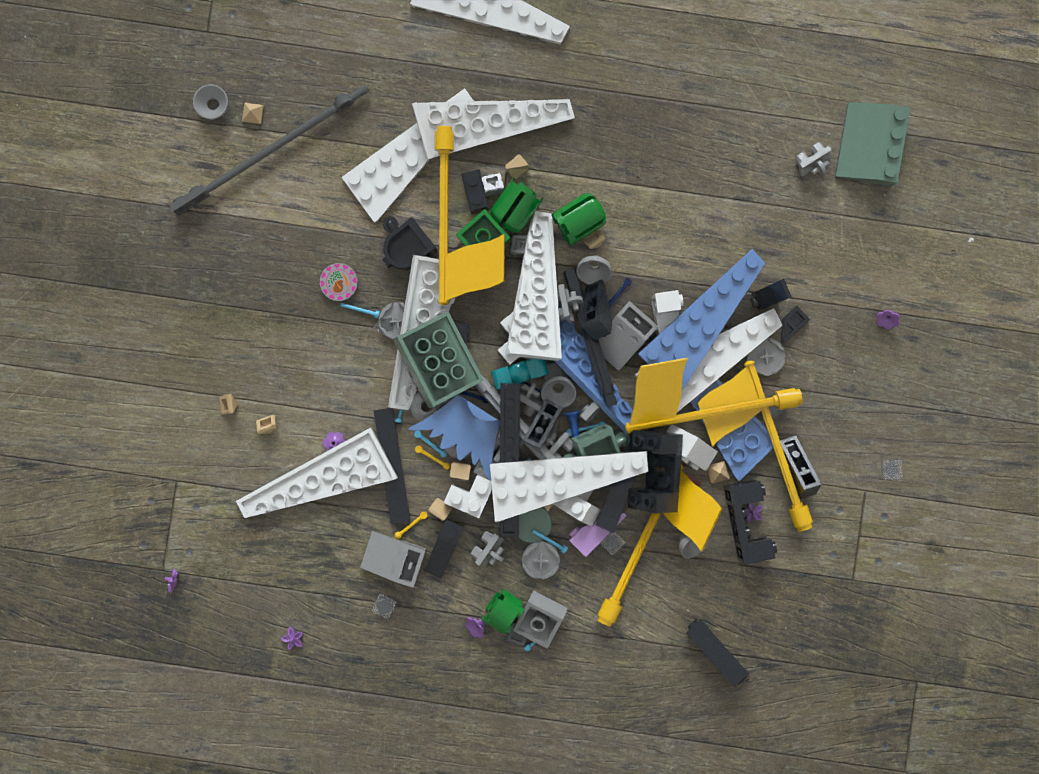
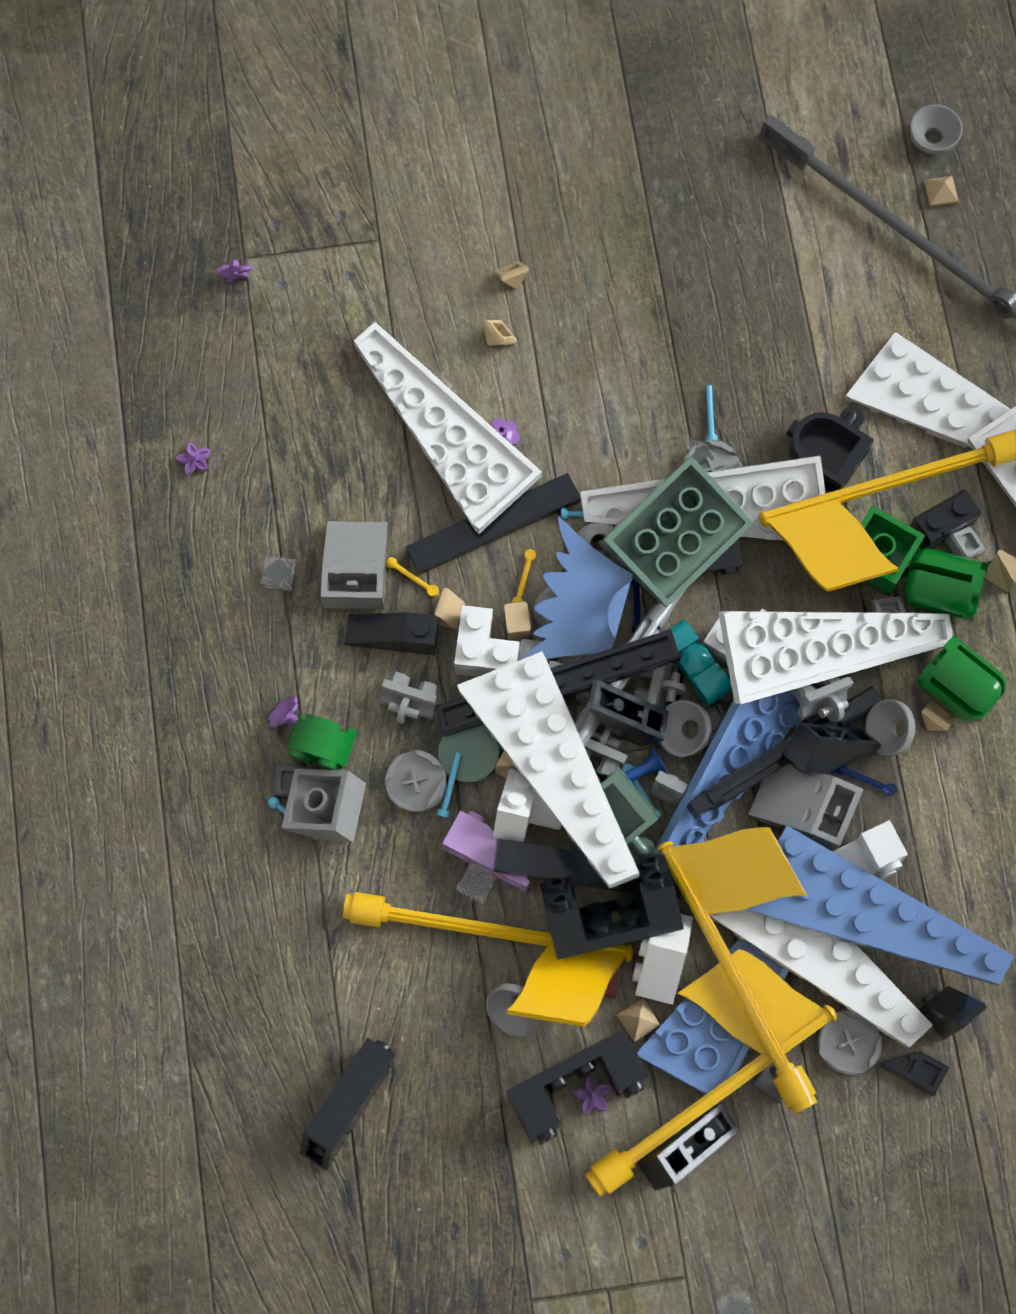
camera: 80 degrees right, 15 degrees down
(338, 282) = (740, 373): light grey tile -> none
(418, 434) = (552, 548): medium azure hinge -> none
(888, 319) = (981, 1225): medium lavender plant -> none

